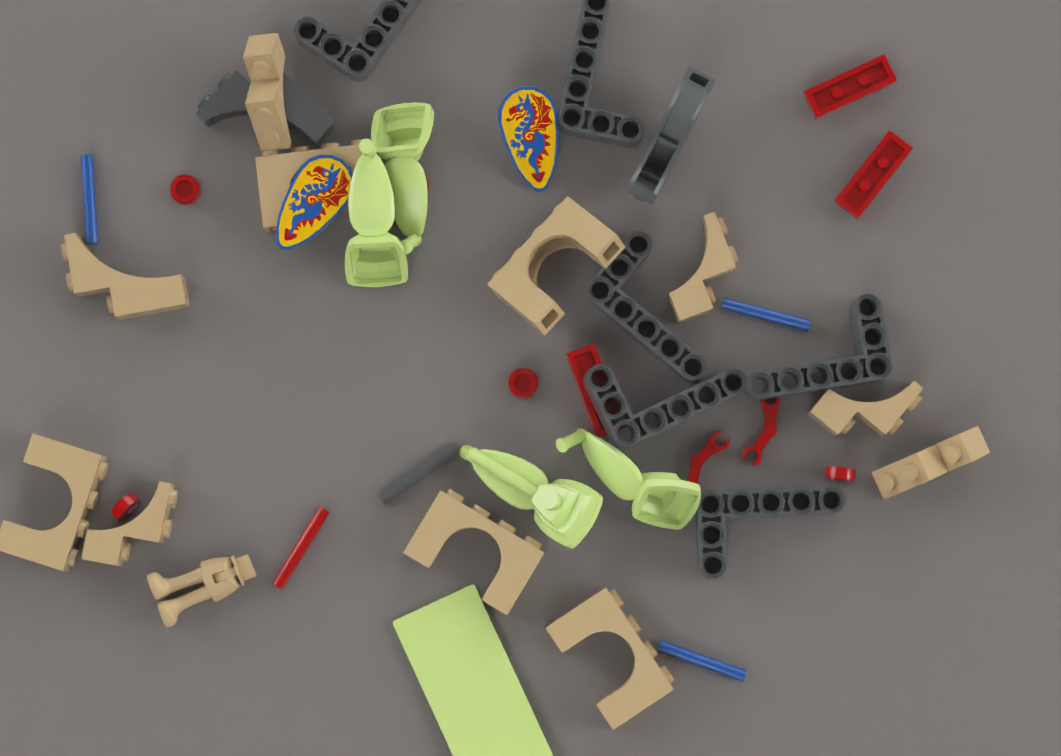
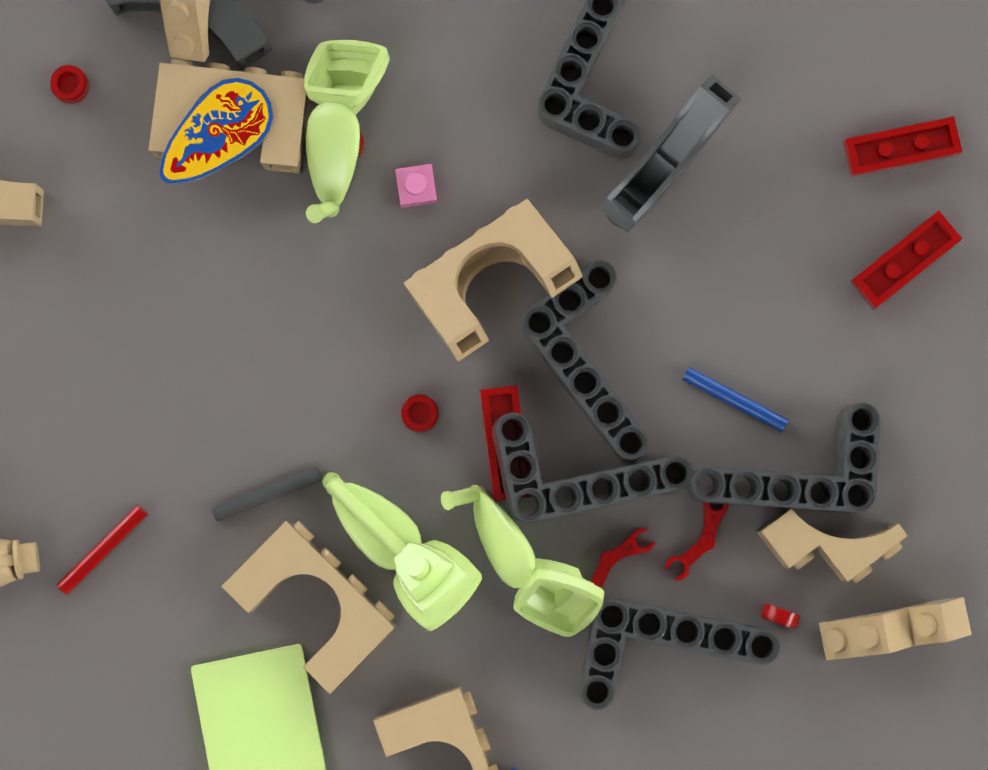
camera: 15 degrees right, 0 degrees up
(374, 254) = (275, 214): yellowish green piece -> none
(477, 205) = (416, 185): none -> bright pink plate
(530, 134) = (500, 113): shield -> none
(718, 259) = (652, 358): tan arch -> none

